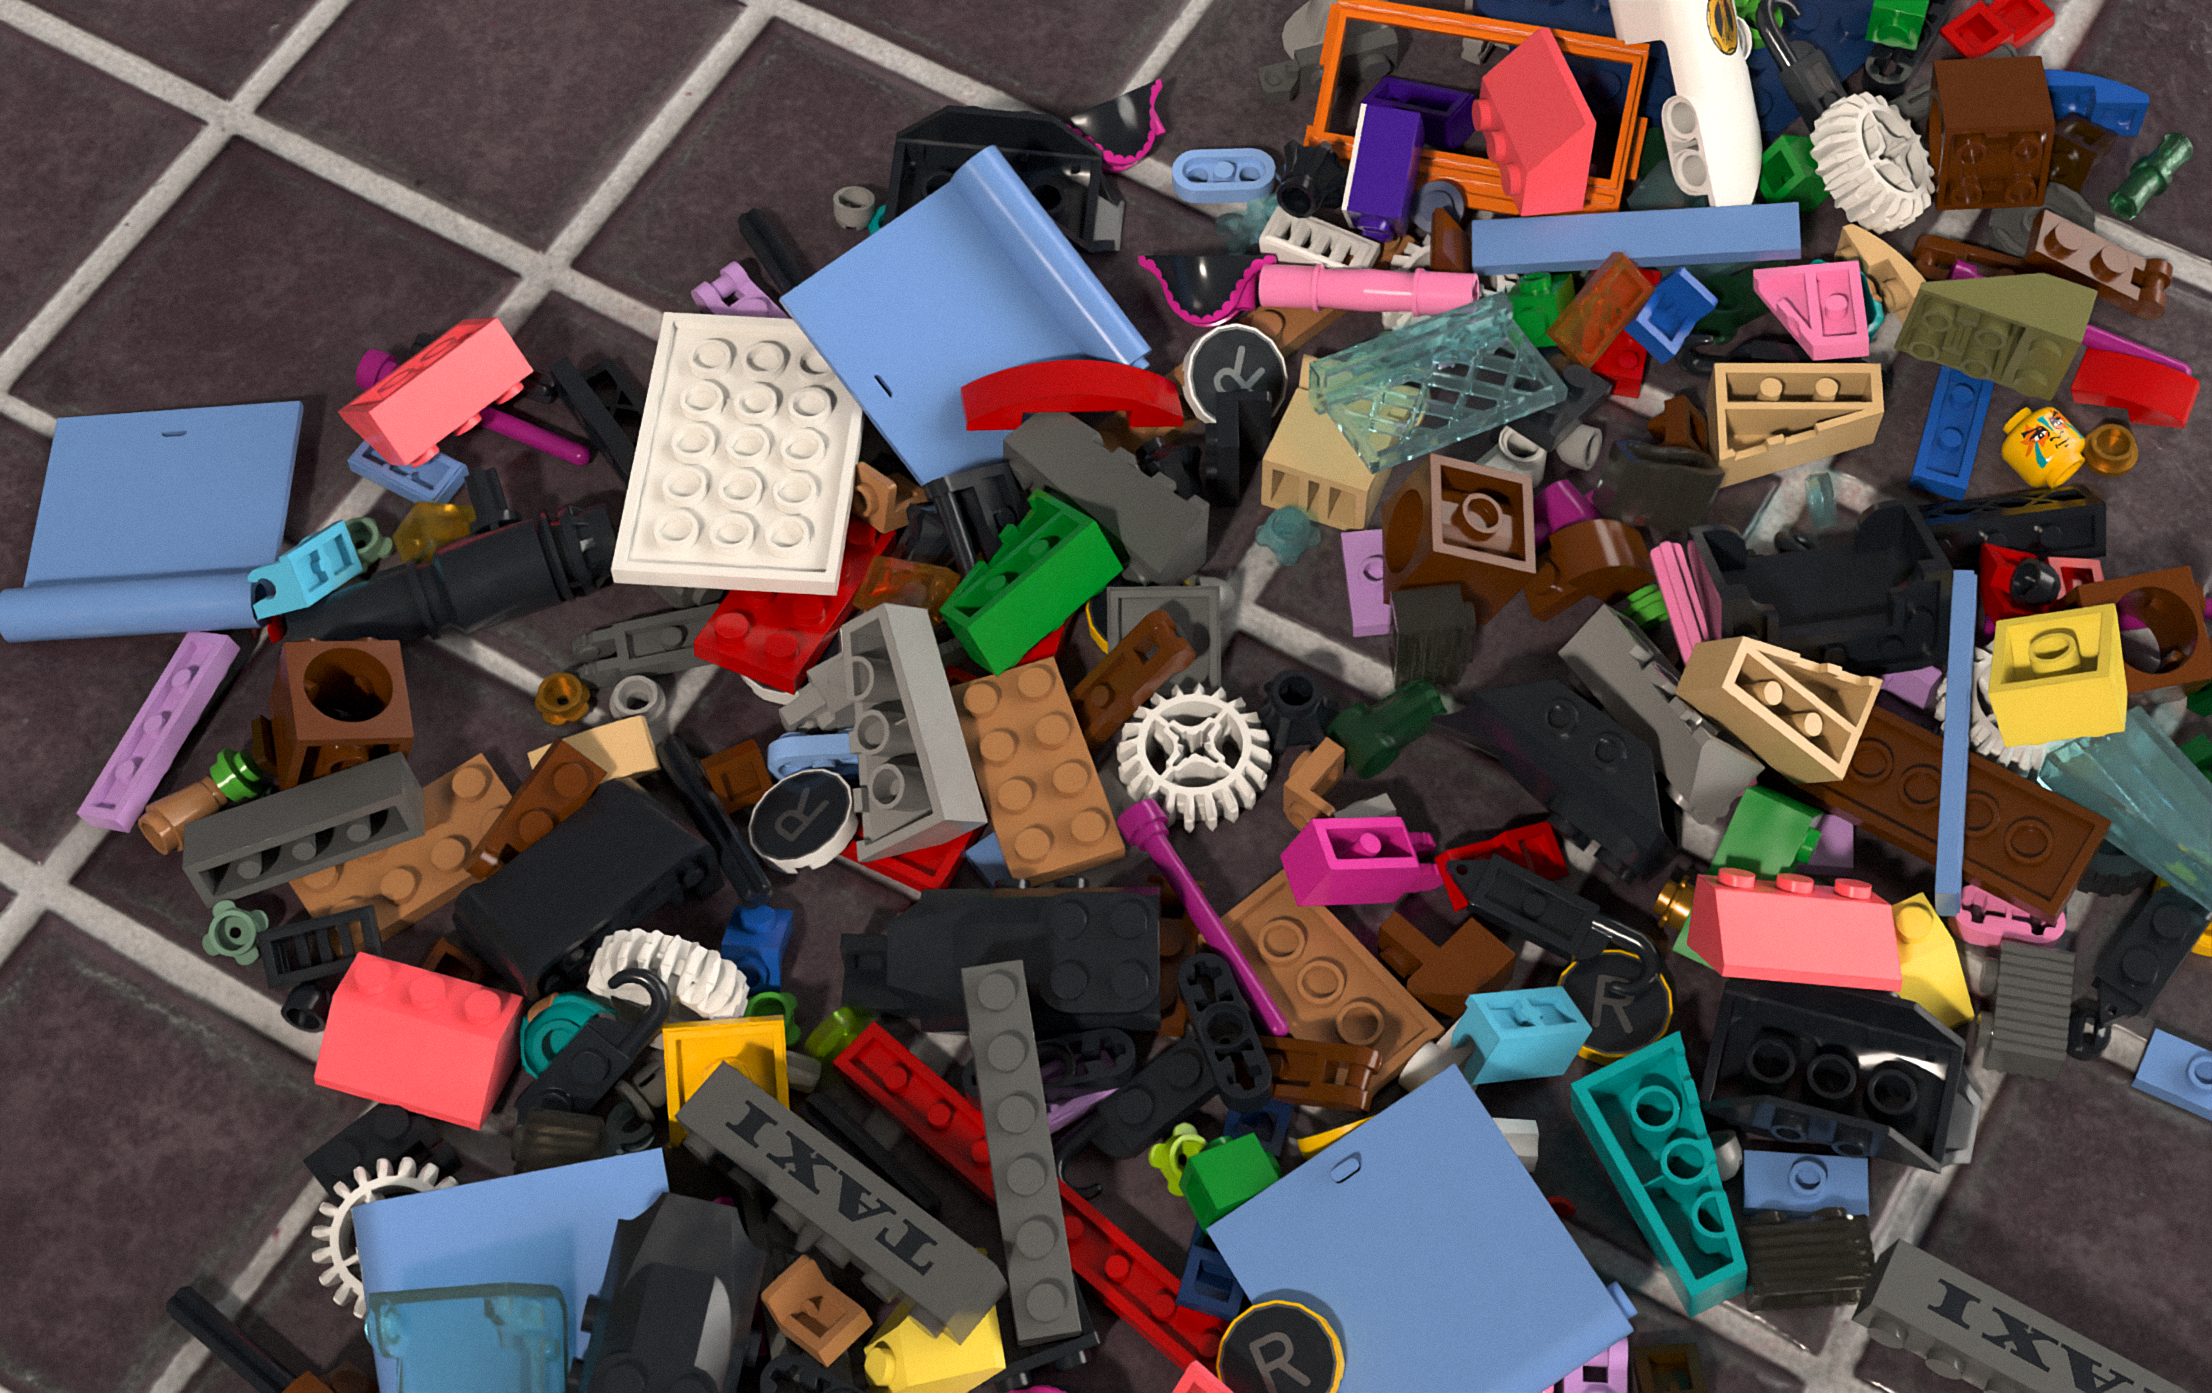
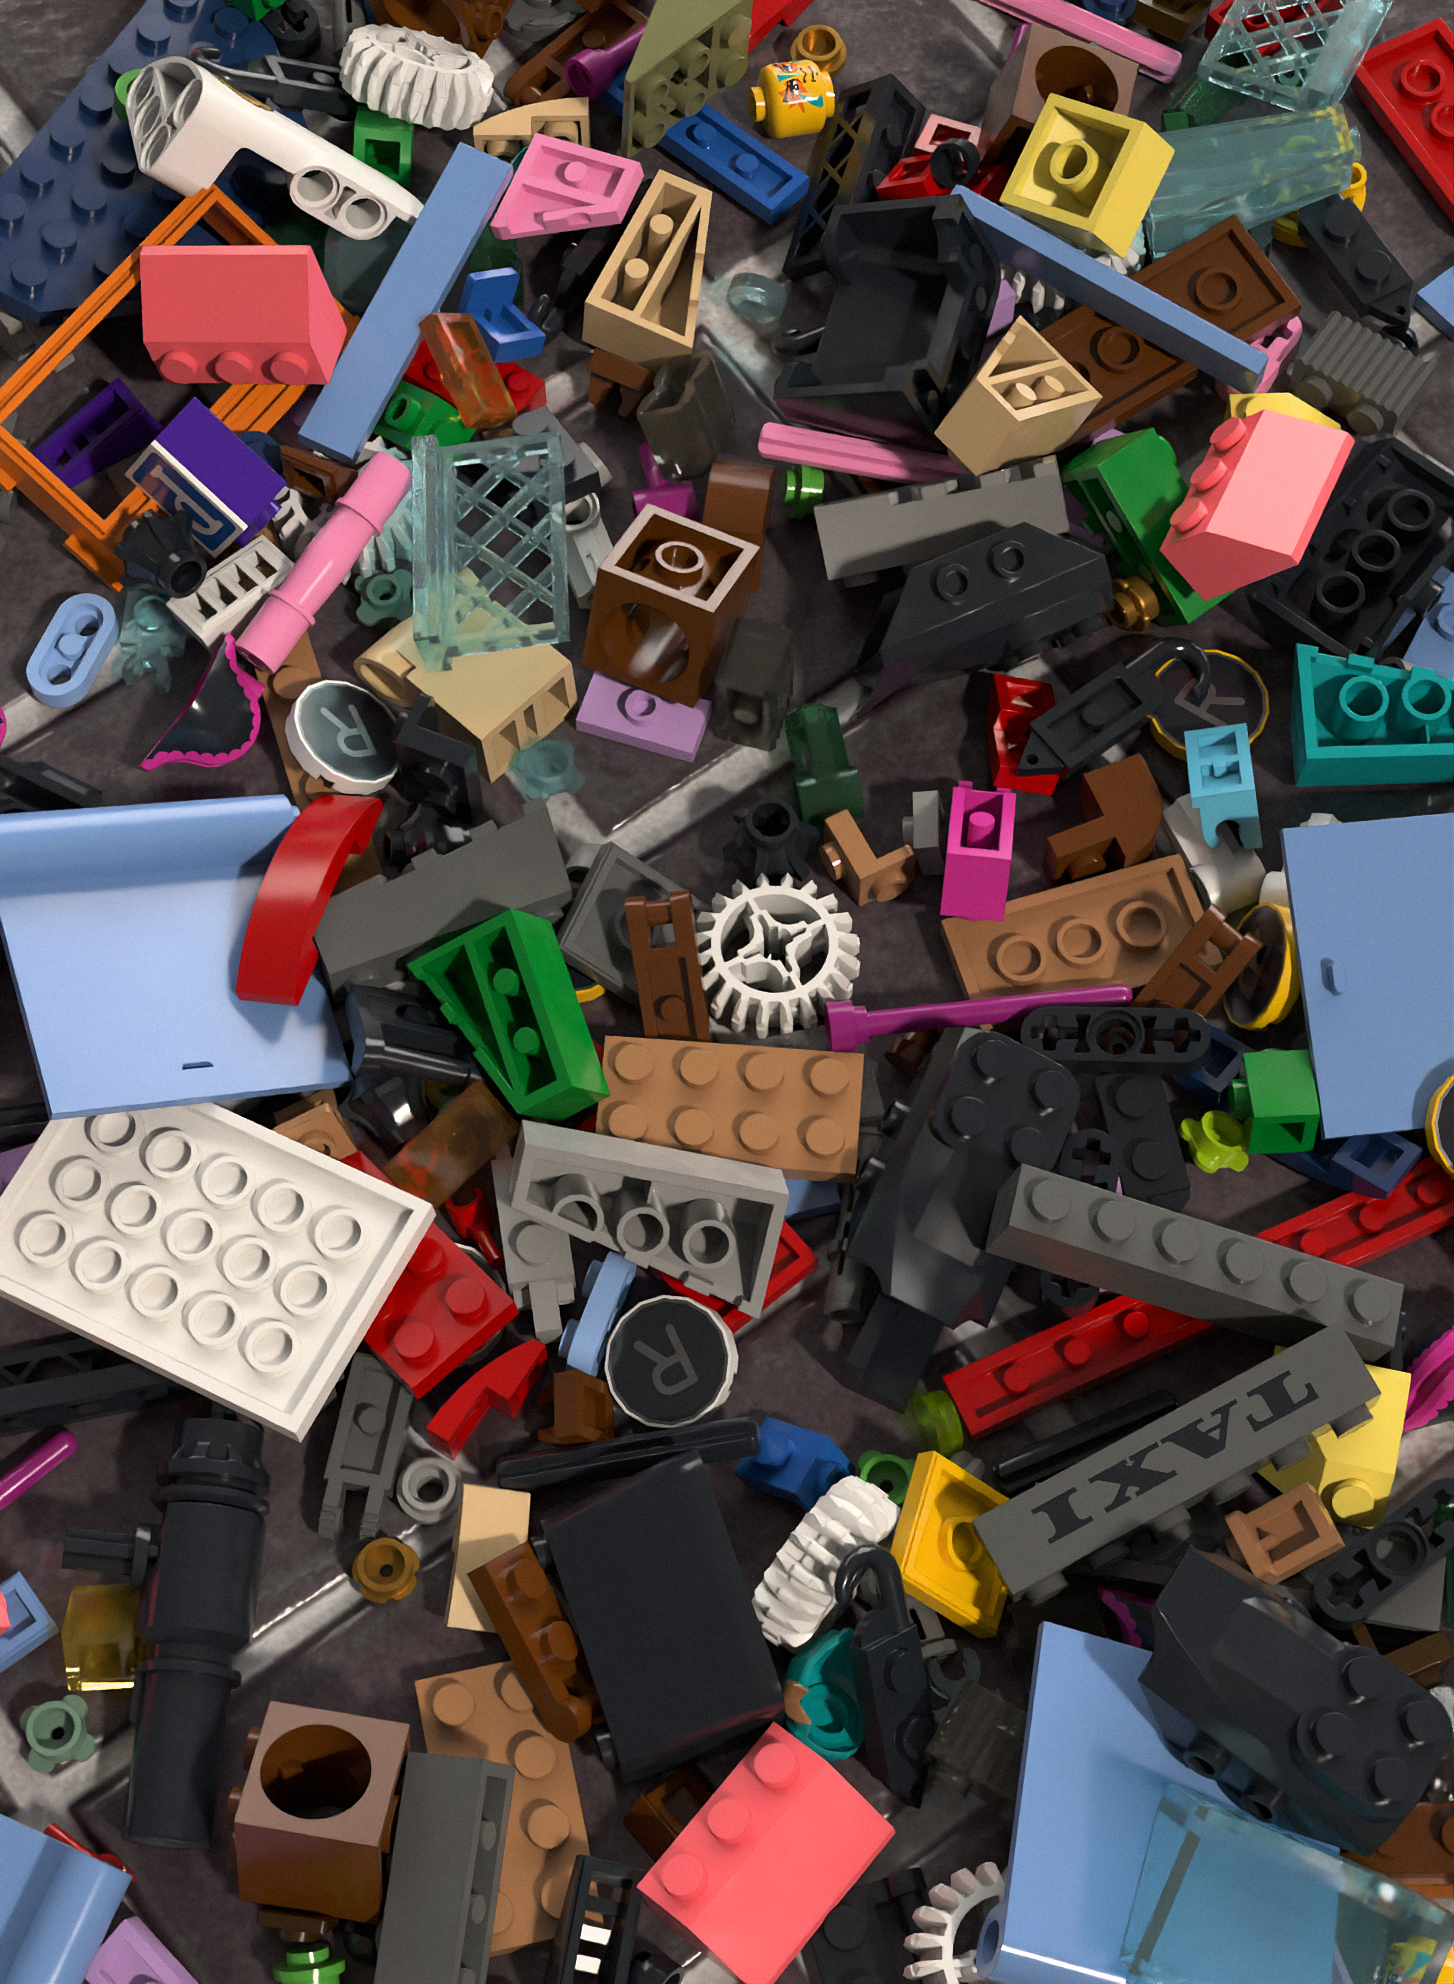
camera: 70 degrees left, 5 degrees up
(308, 571) = (98, 1791): medium azure hinge -> none
(737, 711) = (499, 1385): none -> red slope

